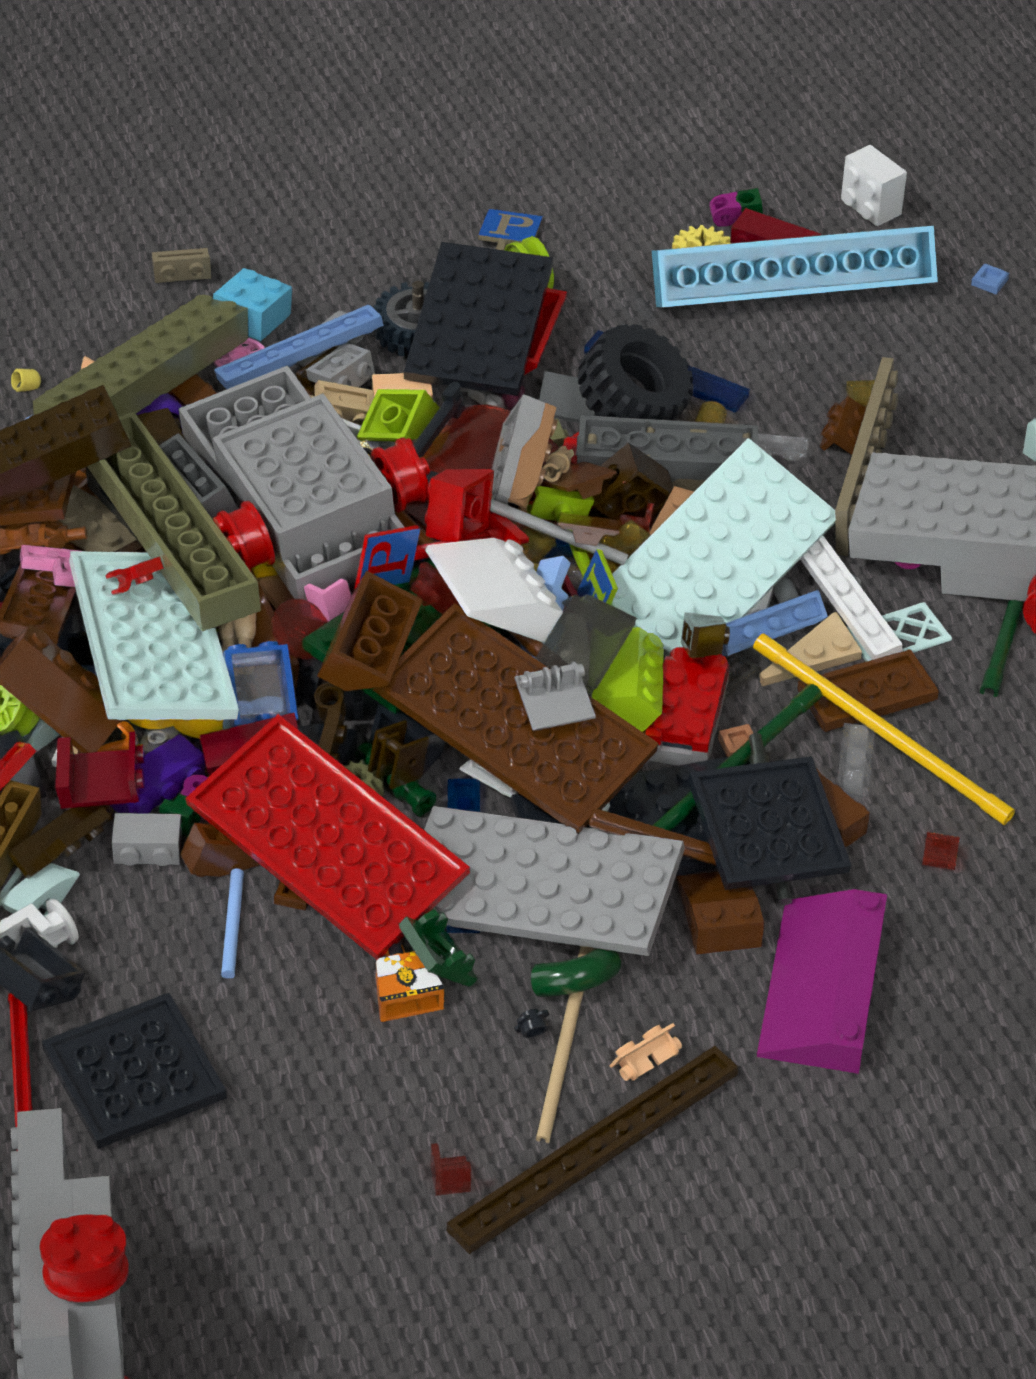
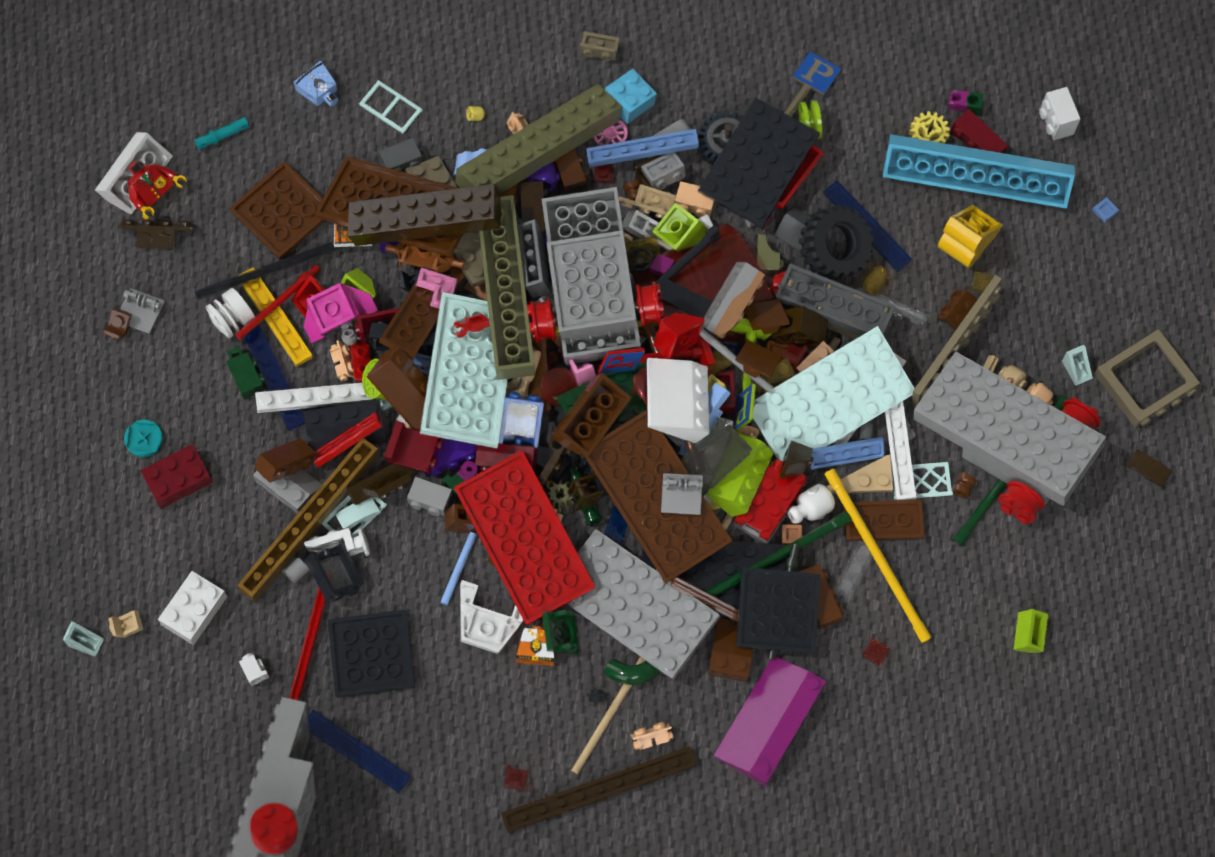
camera: 20 degrees right, 25 degrees up
(188, 1218) = (357, 752): none -> clear blue tile
(307, 982) = (482, 626): none -> white wing
(558, 463) = (759, 302): tan axle -> none
(753, 694) = (812, 504): none -> white piece
(817, 336) = (968, 235): none -> yellow brick
(963, 618) = (964, 485): none -> reddish brown wheel

